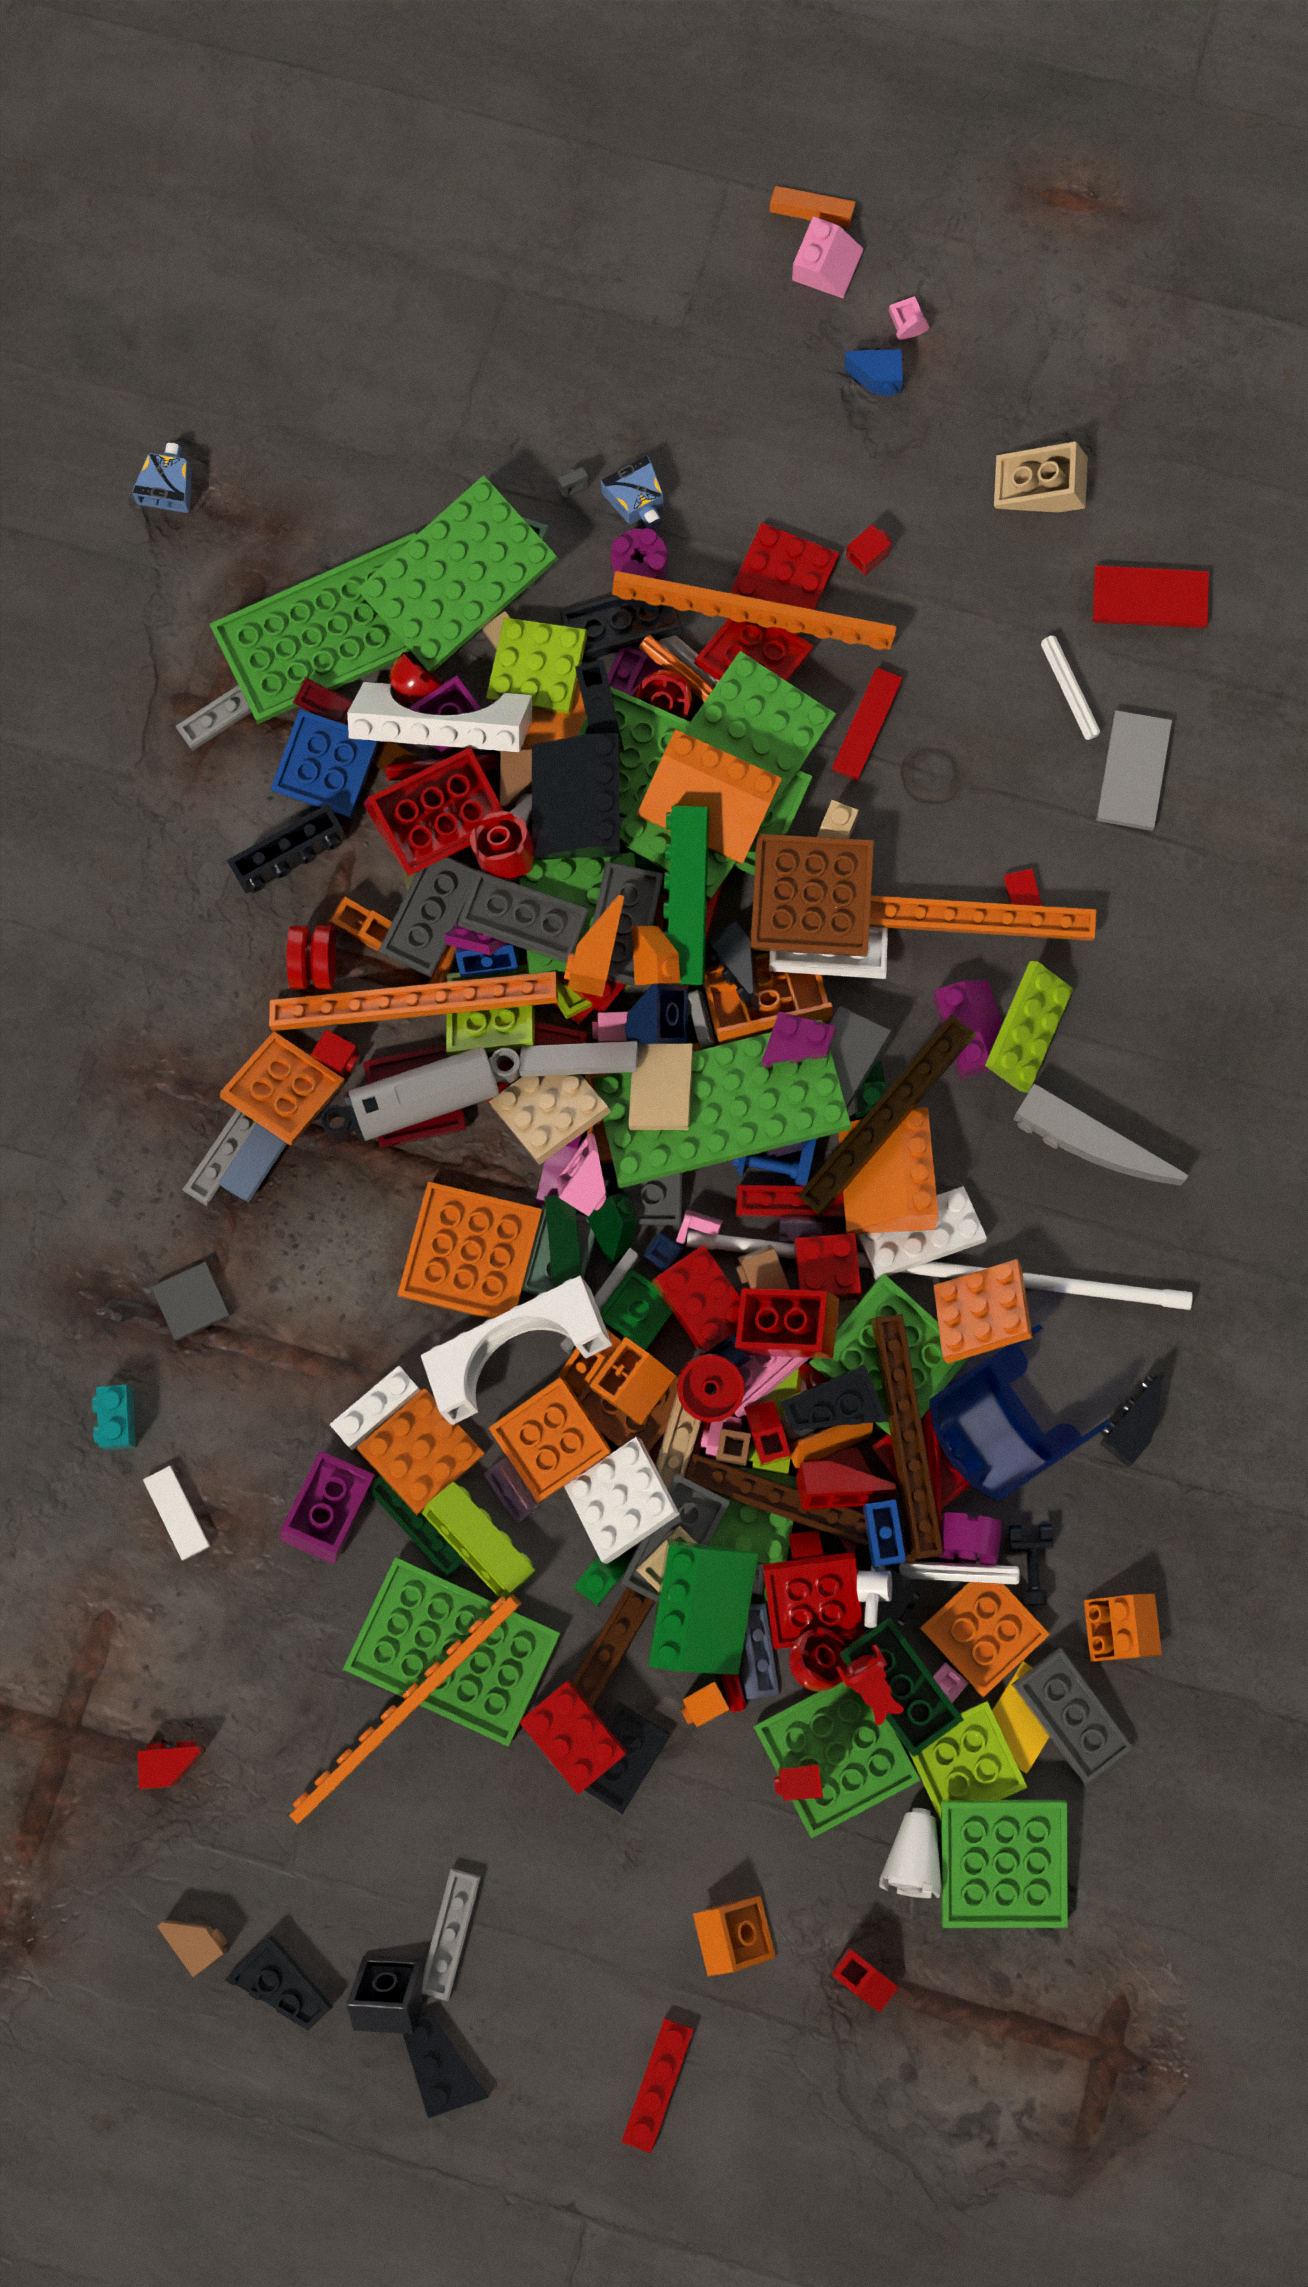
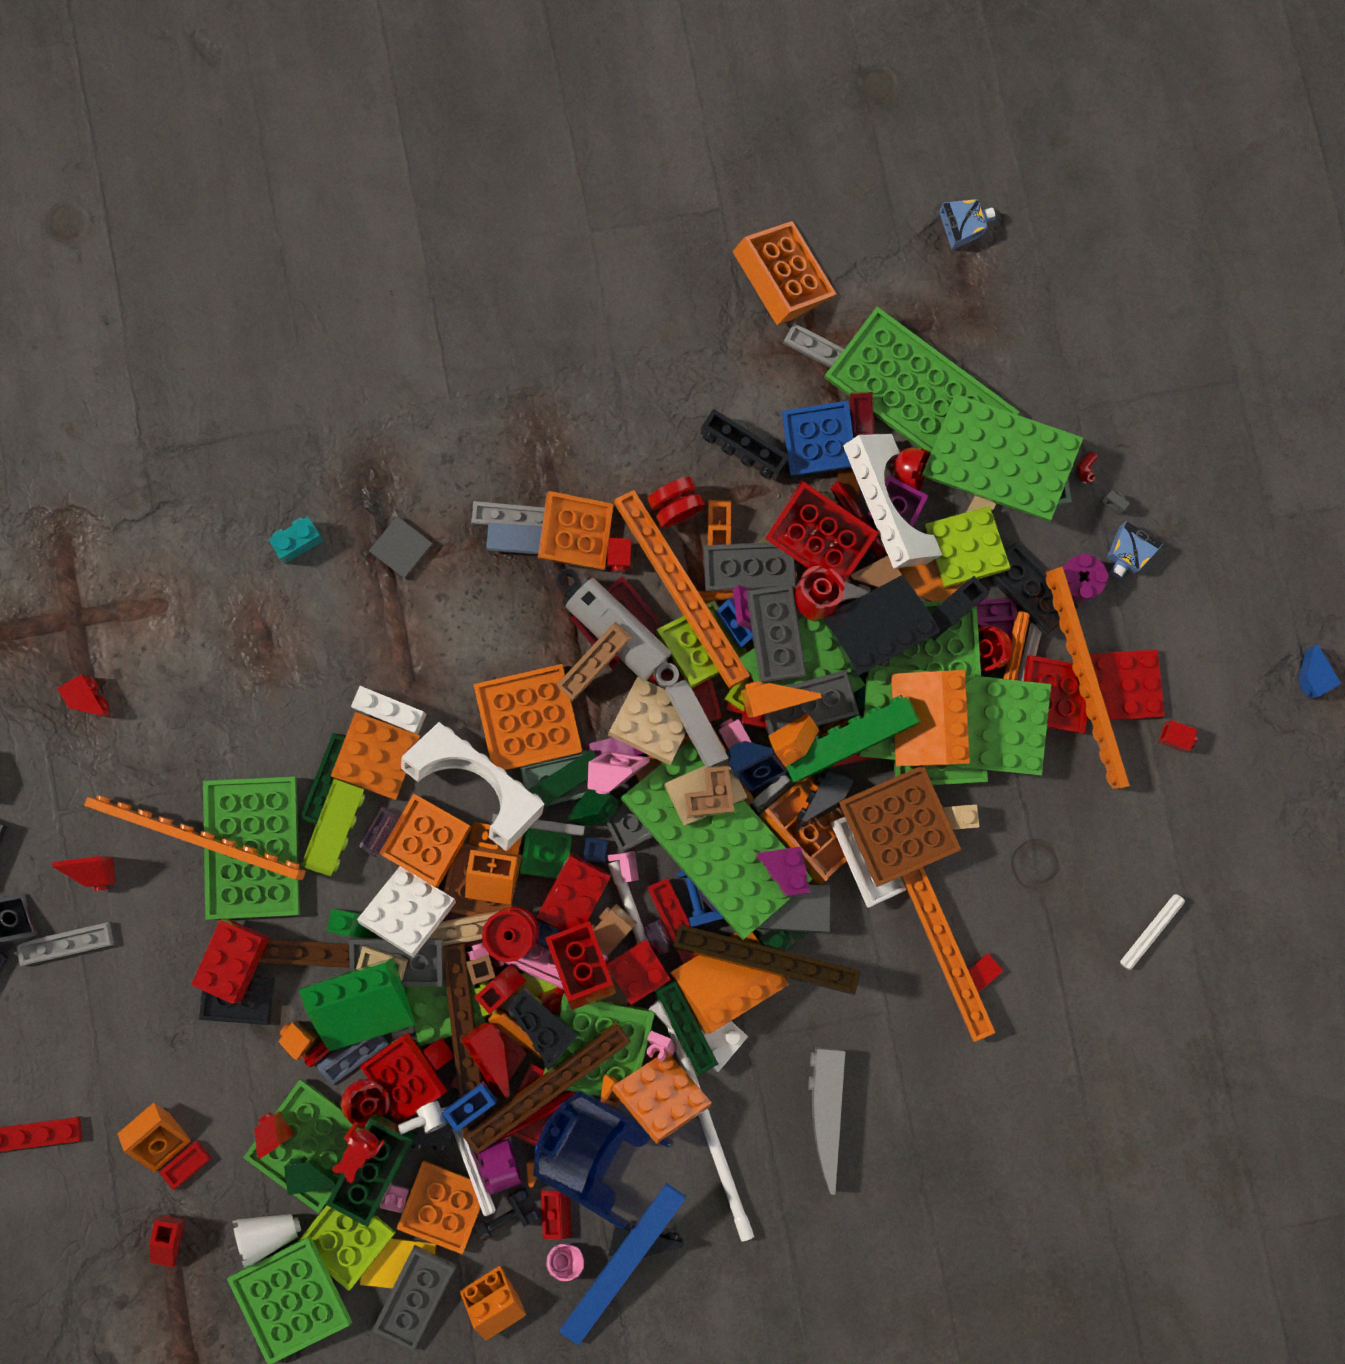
camera: 50 degrees right, 5 degrees up
(111, 707) = (783, 272): none -> orange slope
(176, 1513) = (254, 614): white tile -> none
(326, 1507) = (305, 713): magenta slope -> none
(378, 1857) = (89, 871): none -> red slope
(446, 1137) = (594, 661): none -> medium nougat tile
(517, 497) = (1084, 468): none -> red arm
(676, 1077) = (716, 799): none -> medium nougat plate
(785, 1915) = (185, 1165): none -> red tile
(867, 724) = (1048, 799): red tile -> none
(871, 1768) = (307, 1176): none -> dark green slope
(918, 1246) = (686, 1027): none -> dark green tile
(922, 1285) = (660, 1043): none -> bright pink tile
(949, 1372) = (607, 1094): none -> orange slope
(976, 1008) = (876, 983): magenta slope -> none
(995, 1507) = (530, 1167): none -> orange slope
(1029, 1026) = (885, 1027): lime plate -> none
(1042, 479) = (1298, 834): tan slope -> none
(1056, 1506) = (555, 1215): none -> red slope
(1116, 1519) = (565, 1262): none -> bright pink hair
(1134, 770) = (1115, 1008): light grey tile -> none
(1149, 1451) = (622, 1263): none -> blue tile
(1150, 596) = (1252, 956): red tile -> none

